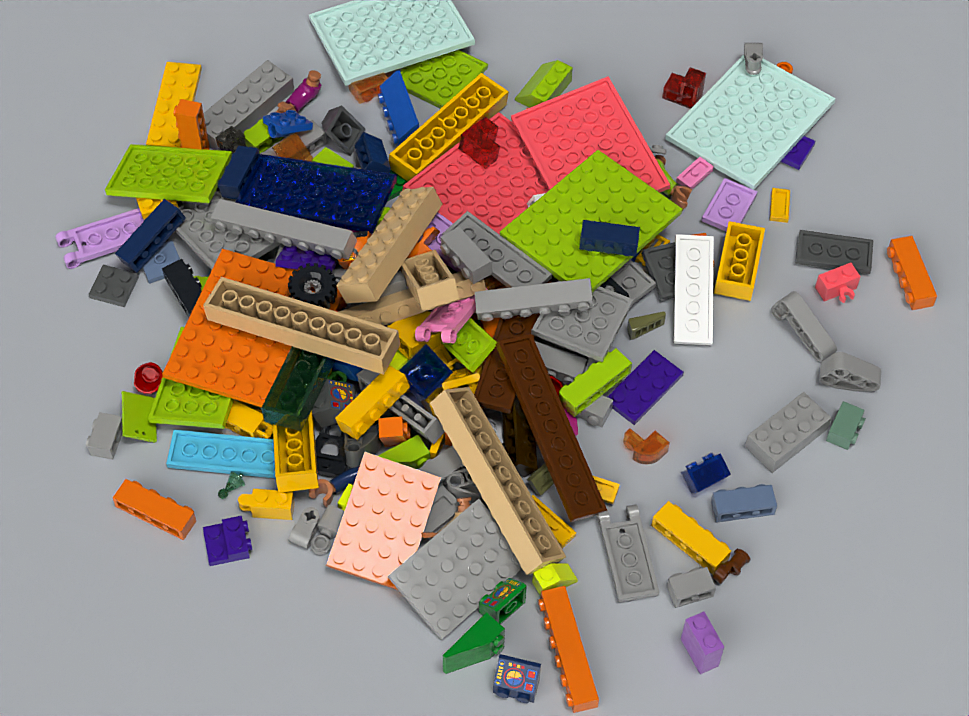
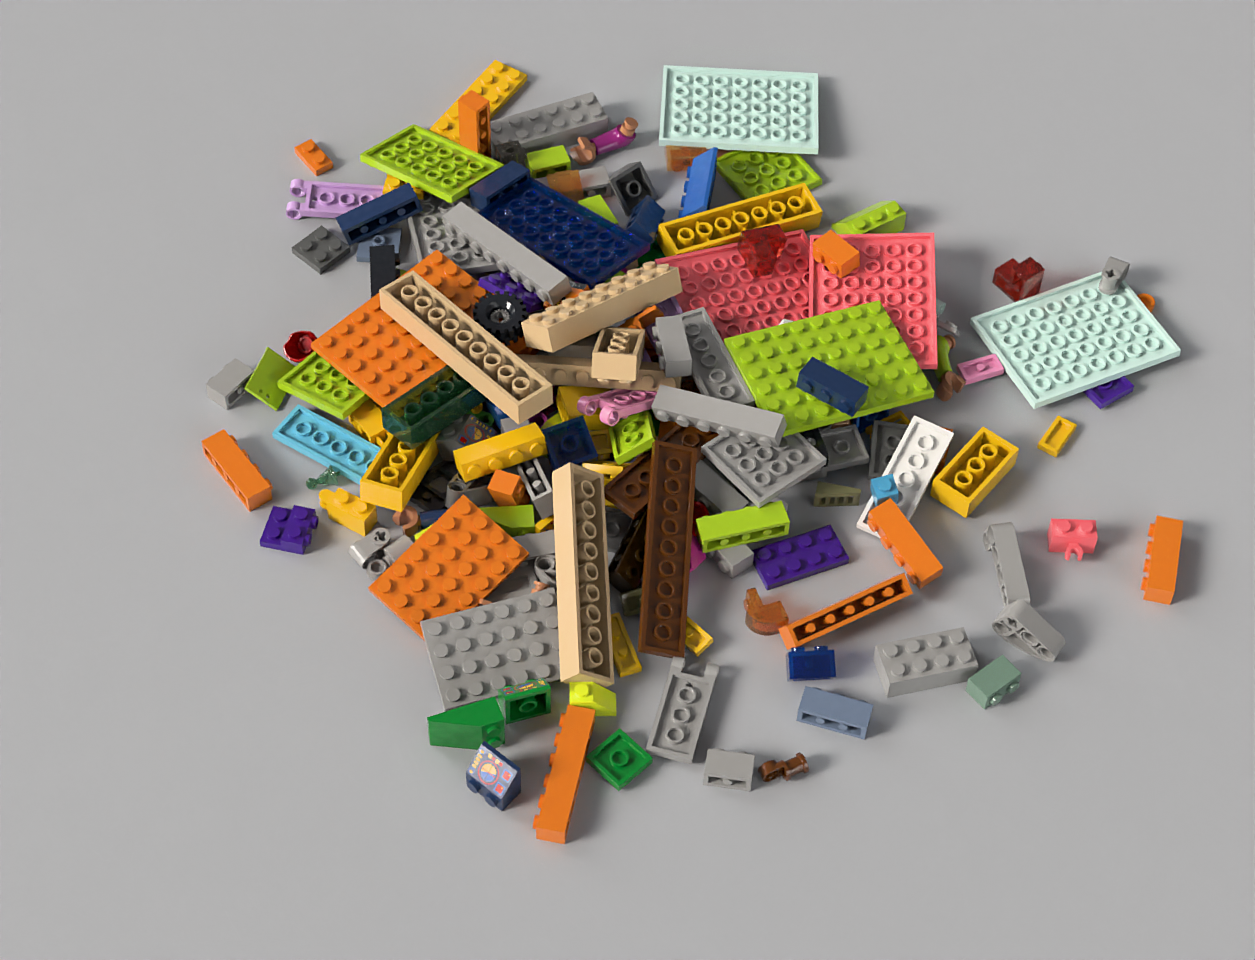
camera: 25 degrees right, 5 degrees down
(60, 206) = (313, 157): none -> orange plate
(285, 123) = (570, 157): blue plate -> none
(543, 124) = (836, 254): none -> orange brick
(602, 617) = (619, 759): none -> green plate
(686, 306) = (884, 489): none -> dark azure brick
(691, 537) = (757, 720): yellow brick -> none
(702, 642) = (703, 824): medium lavender brick -> none
(707, 417) = (845, 611): none -> orange brick
(721, 341) = (904, 543): none -> orange brick
(729, 204) = (1000, 413): lavender plate -> none
(834, 251) = (1085, 501): dark grey plate -> none

